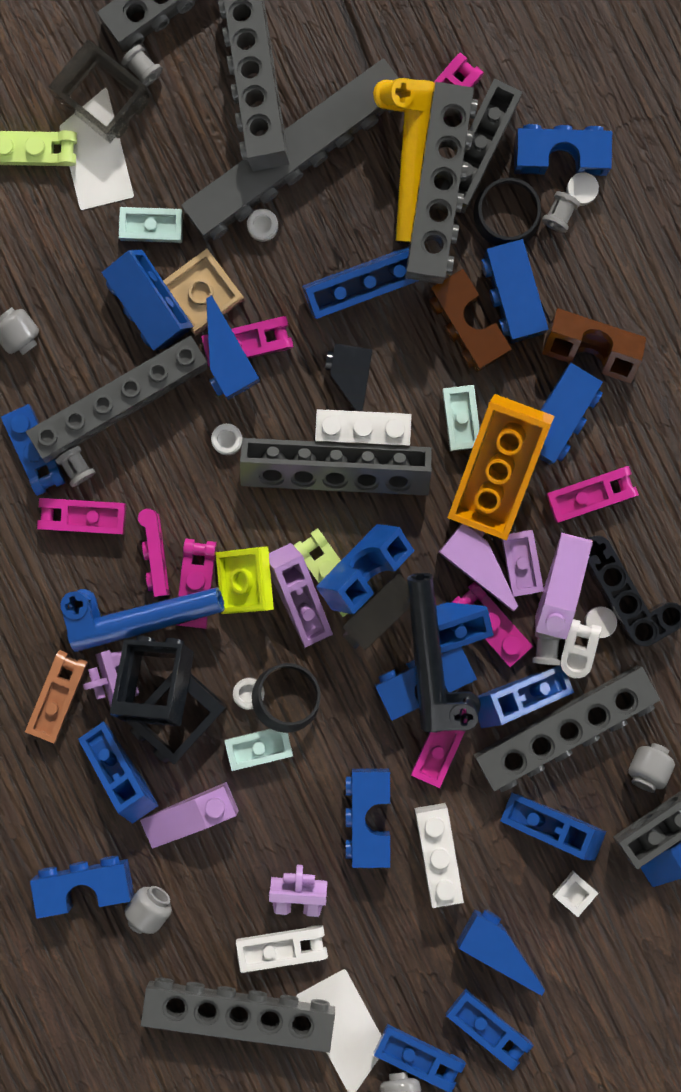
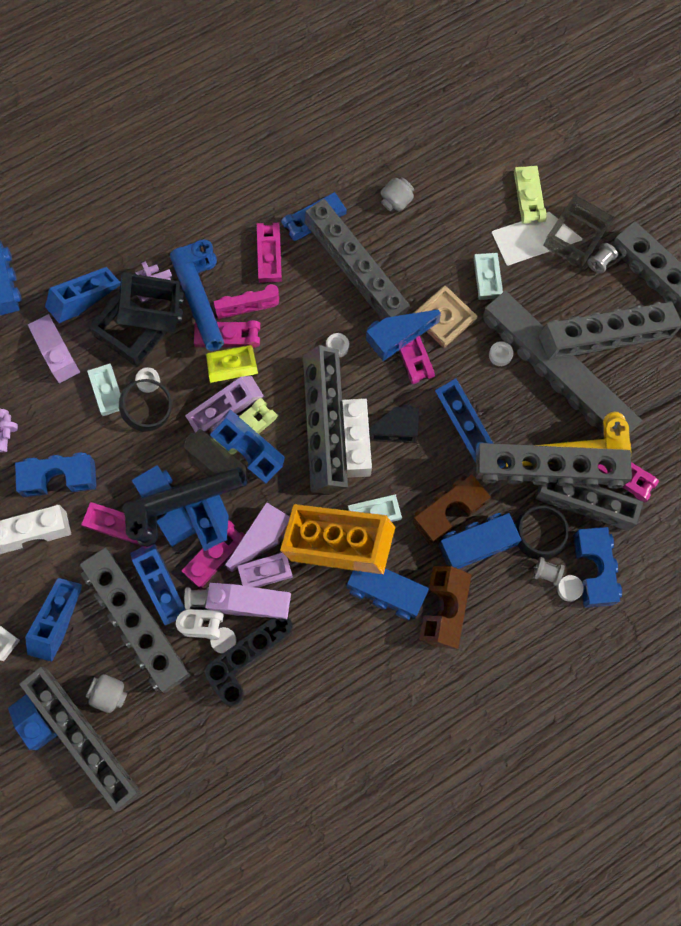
camera: 80 degrees right, 15 degrees down
(56, 698) = (135, 248): nougat plate -> none
(75, 466) = (304, 243): light grey bush -> none
(146, 300) = (433, 276): blue brick -> none
(590, 494) = (325, 621): dark pink plate -> none

